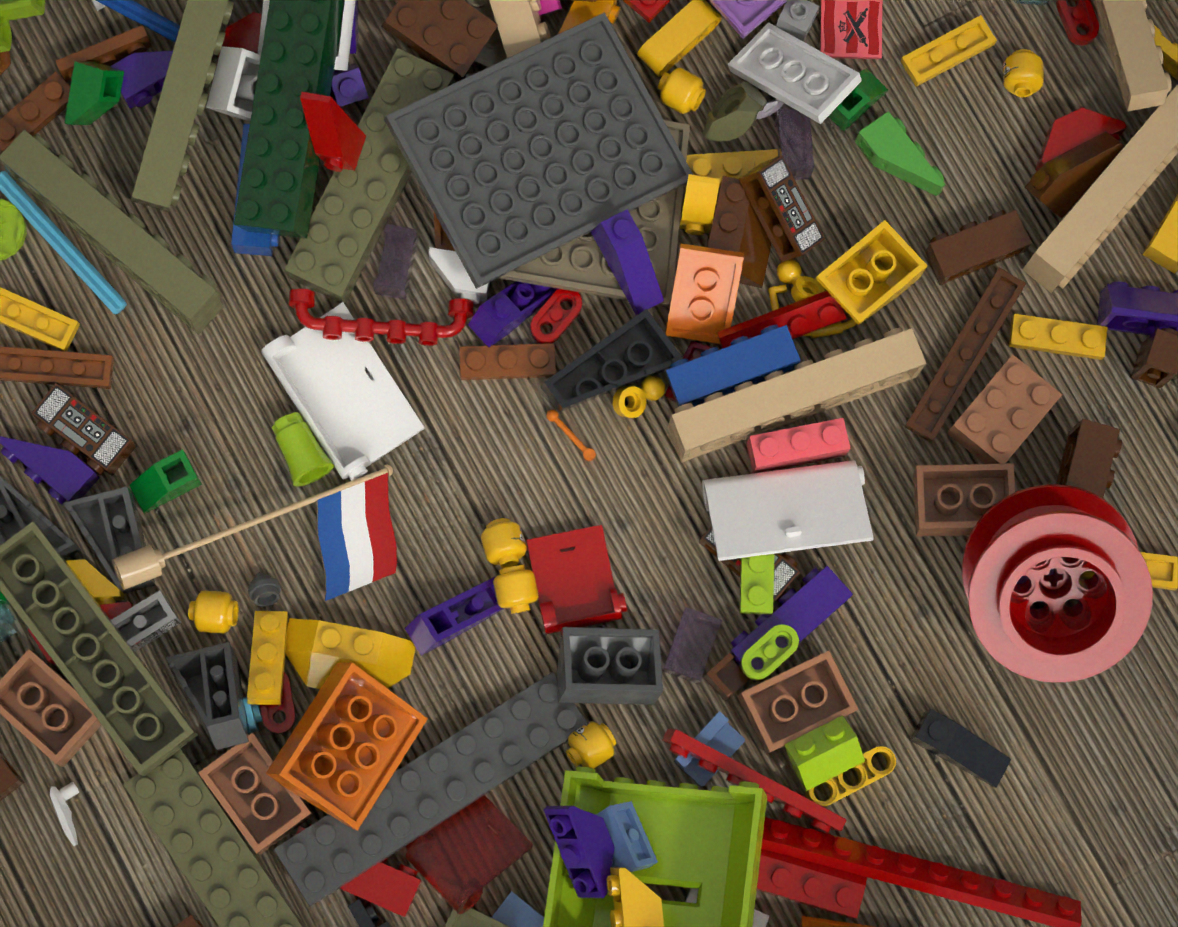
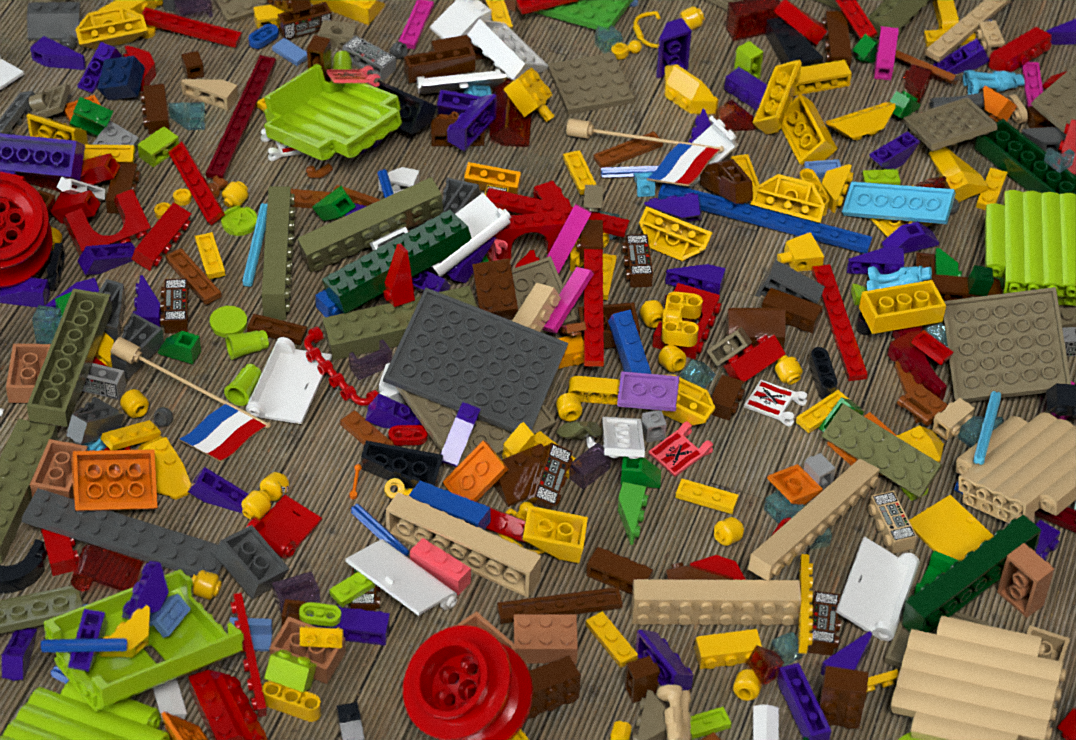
camera: 55 degrees right, 30 degrees down
(166, 383) = (228, 321): none -> lime tile
(232, 393) = (245, 343): none -> lime plant
(237, 334) = (278, 328): none -> reddish brown plate
(675, 470) = (377, 529): none -> blue axle
(822, 670) = (321, 637): none -> yellow hinge

